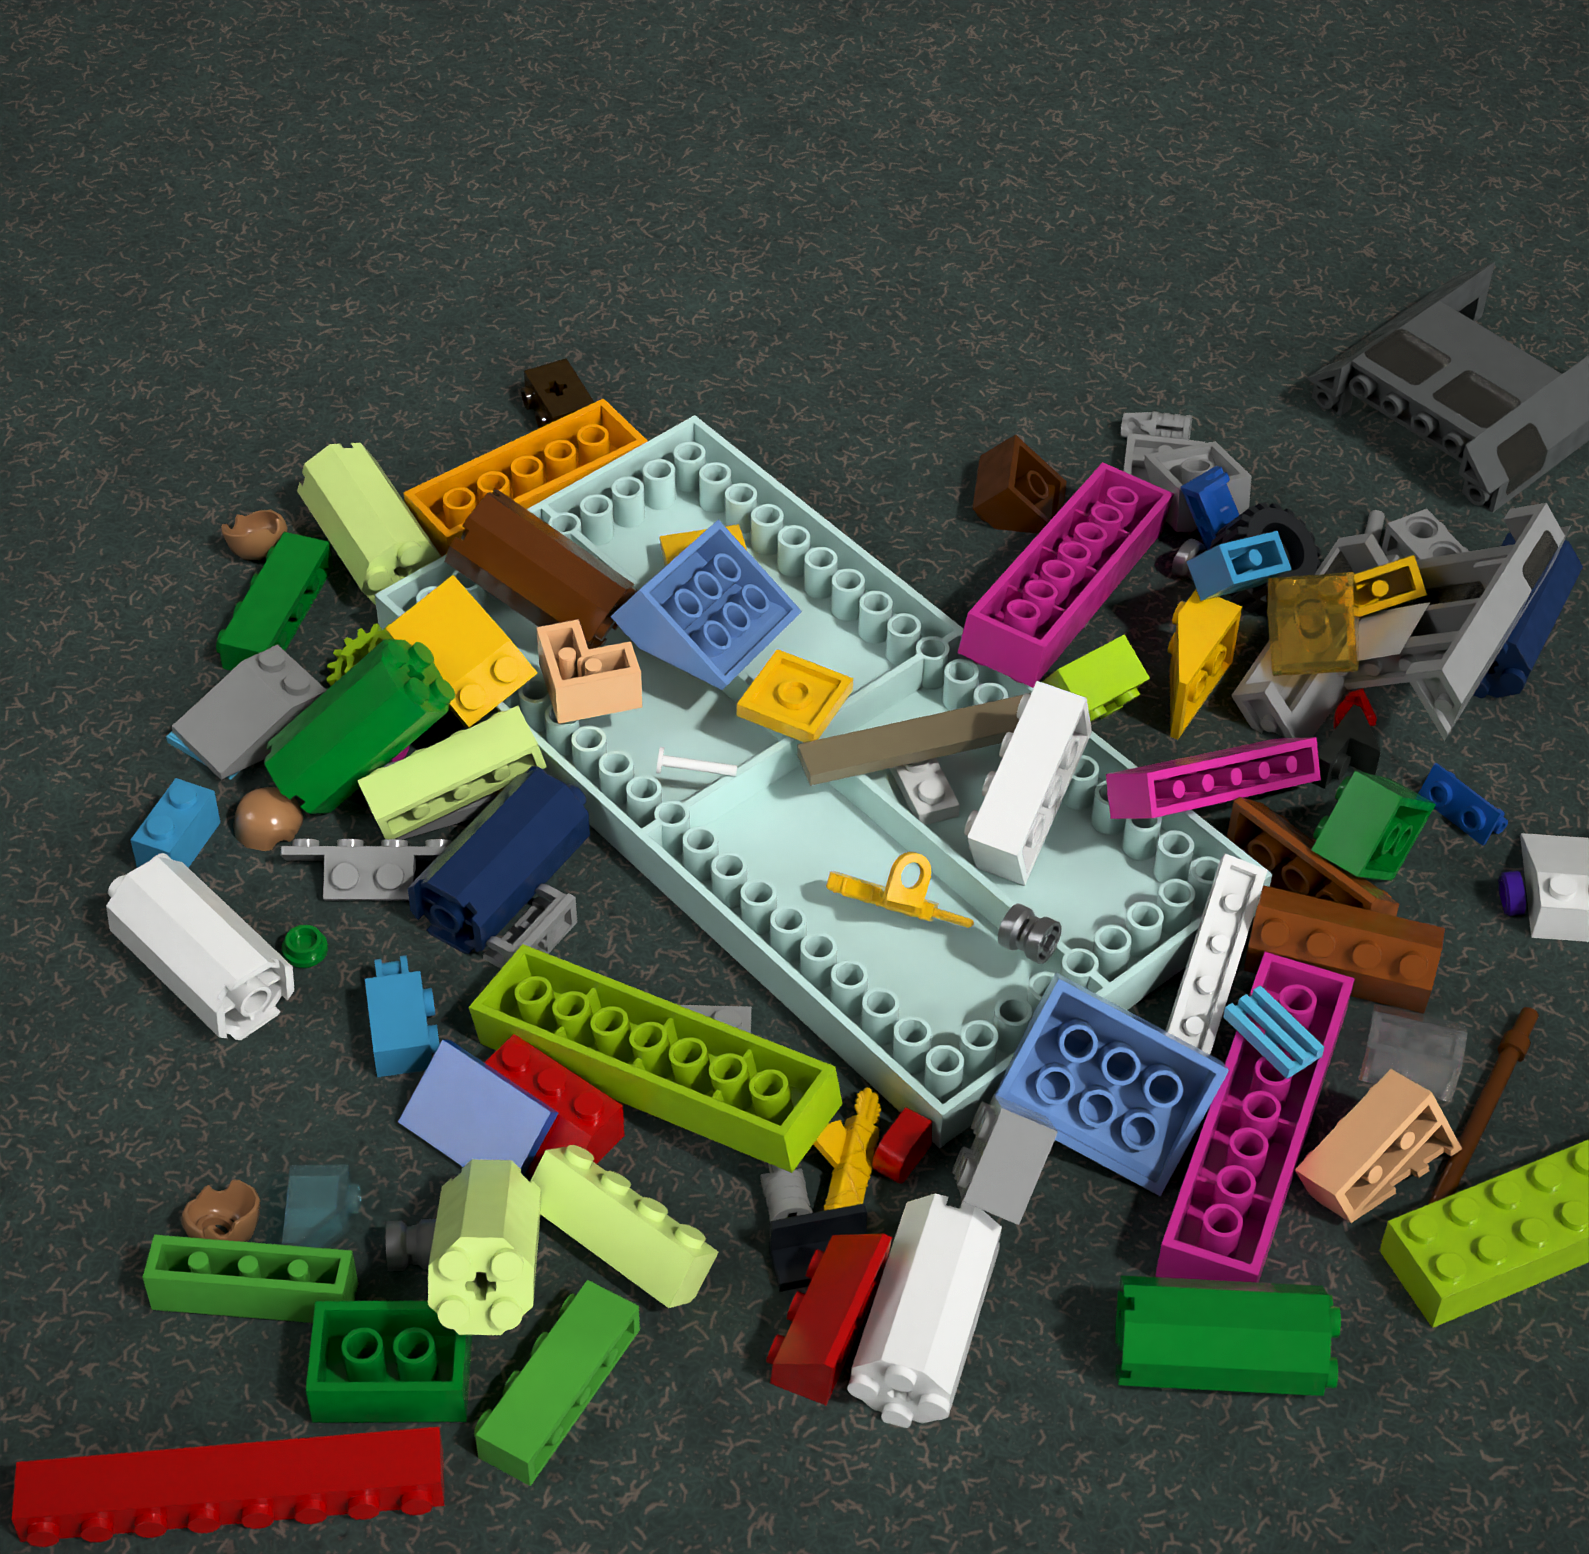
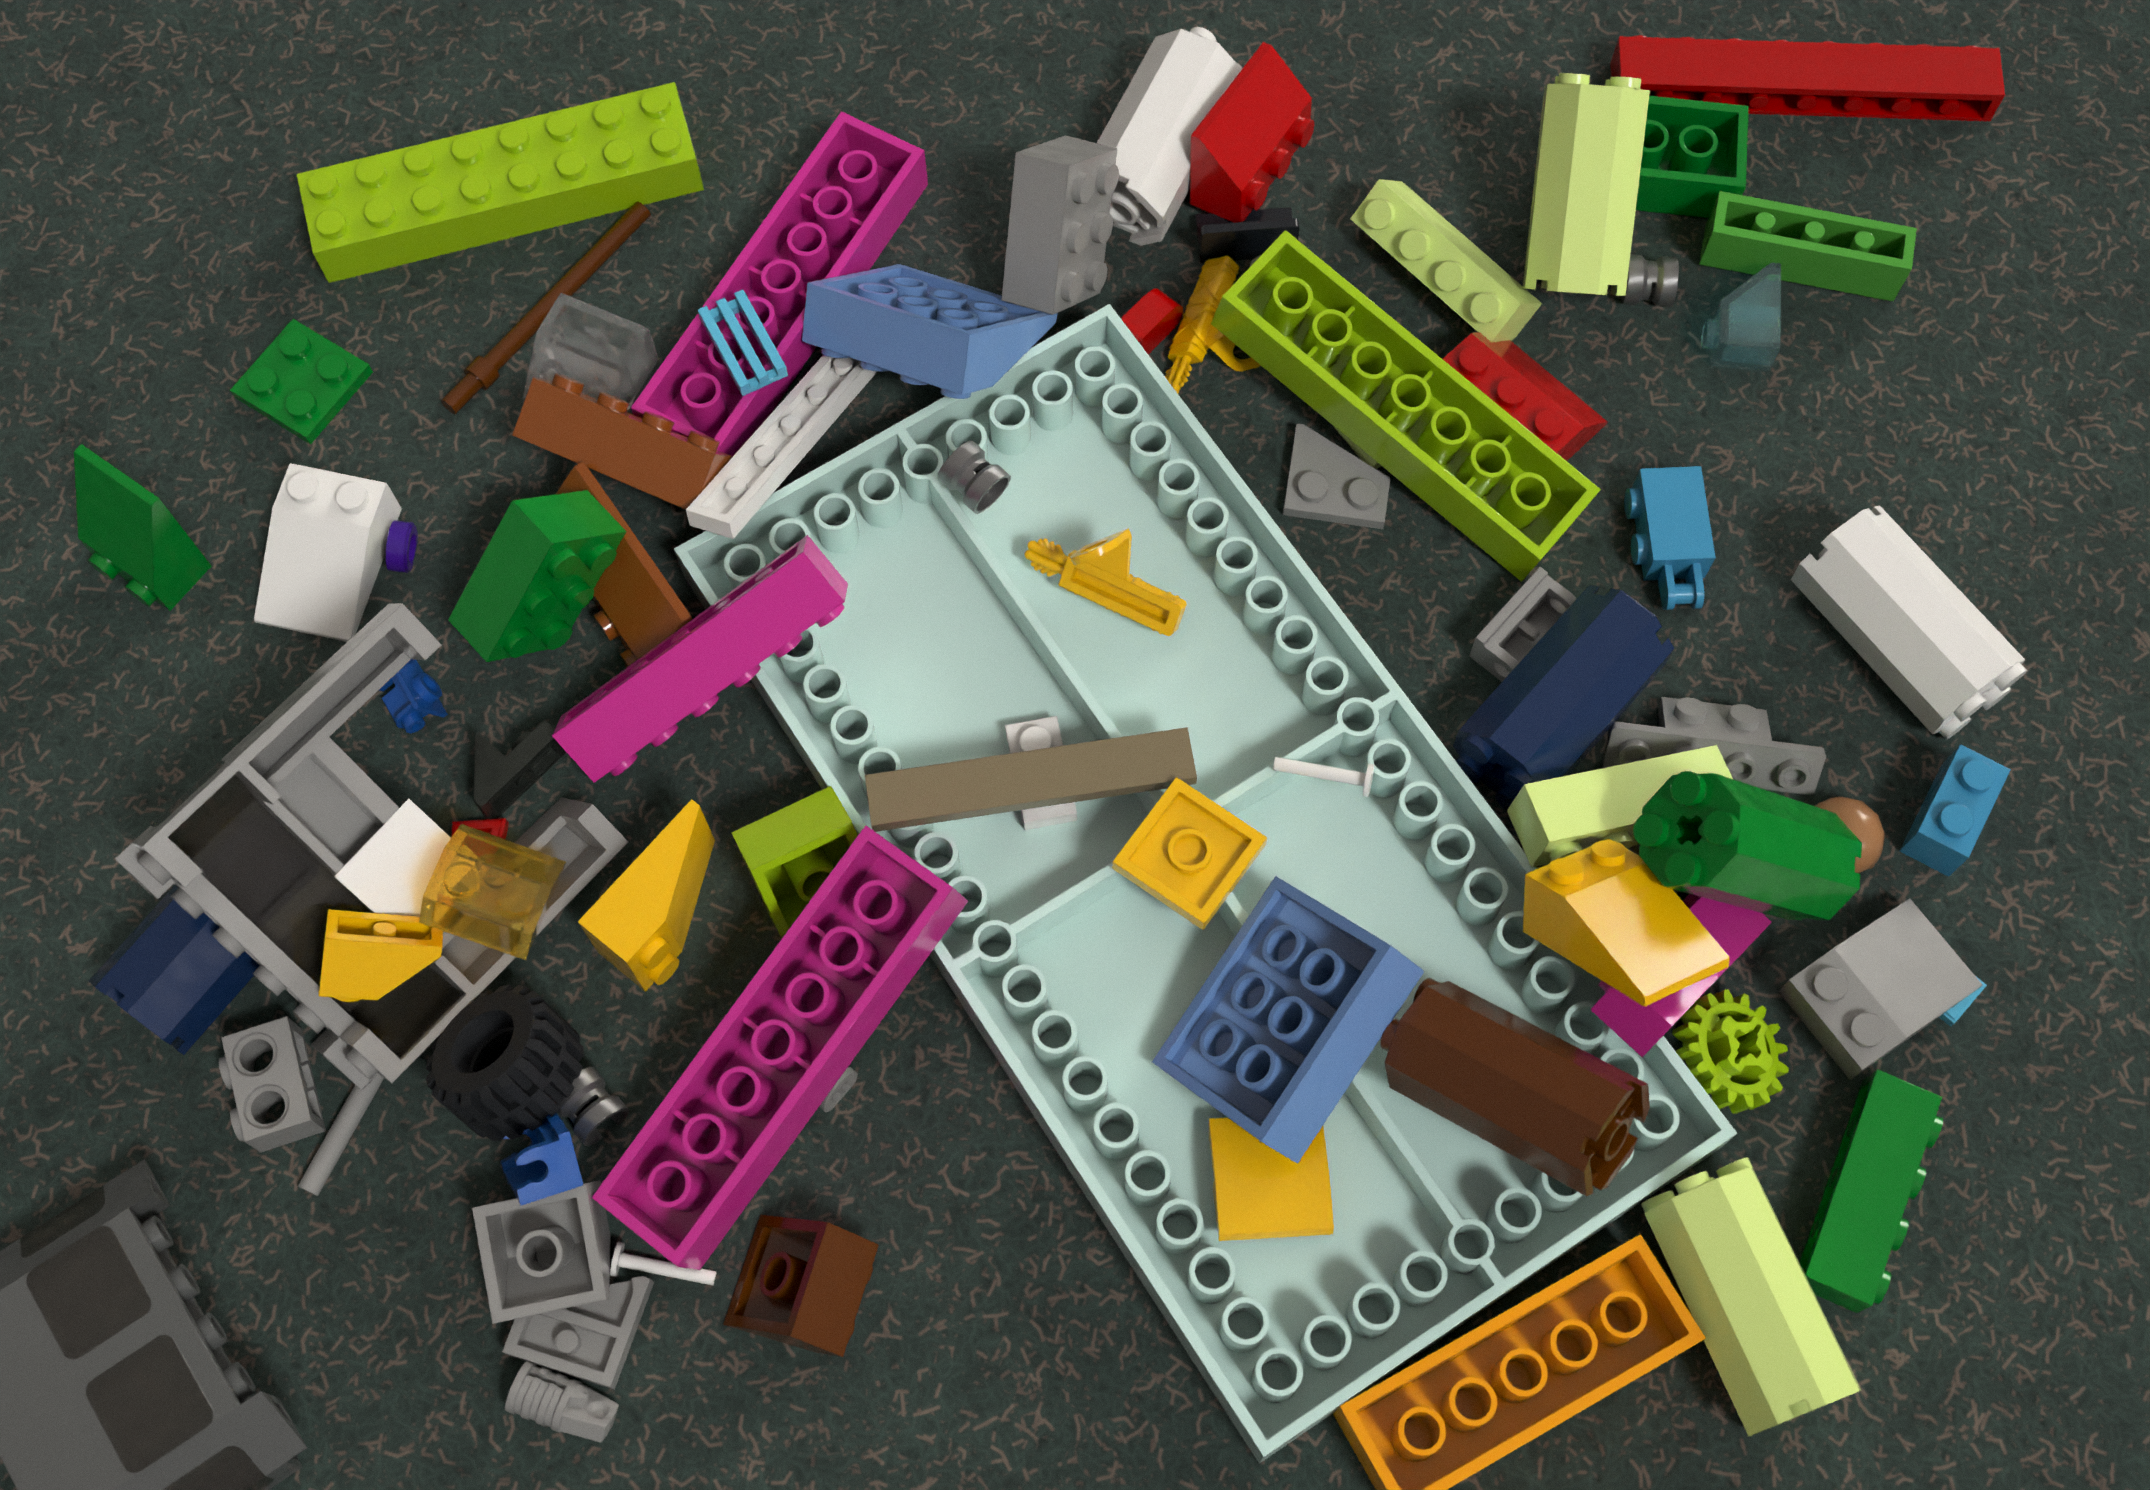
camera: 170 degrees left, 20 degrees up
(215, 1207) = (1849, 315): medium nougat hair -> none
(254, 534) = (1932, 1333): medium nougat hair -> none
(304, 946) = (1782, 648): green plate -> none
(476, 1111) = (1585, 392): tile -> none
(556, 1382) = (1499, 141): bright green brick -> none
(587, 680) = (1470, 888): light nougat brick -> none
(1029, 782) = (925, 667): white brick -> none
(1226, 1335) = (886, 79): green brick -> none
(1238, 565) = (565, 950): dark azure brick -> none
(1377, 1146) = (671, 246): light nougat wedge -> none

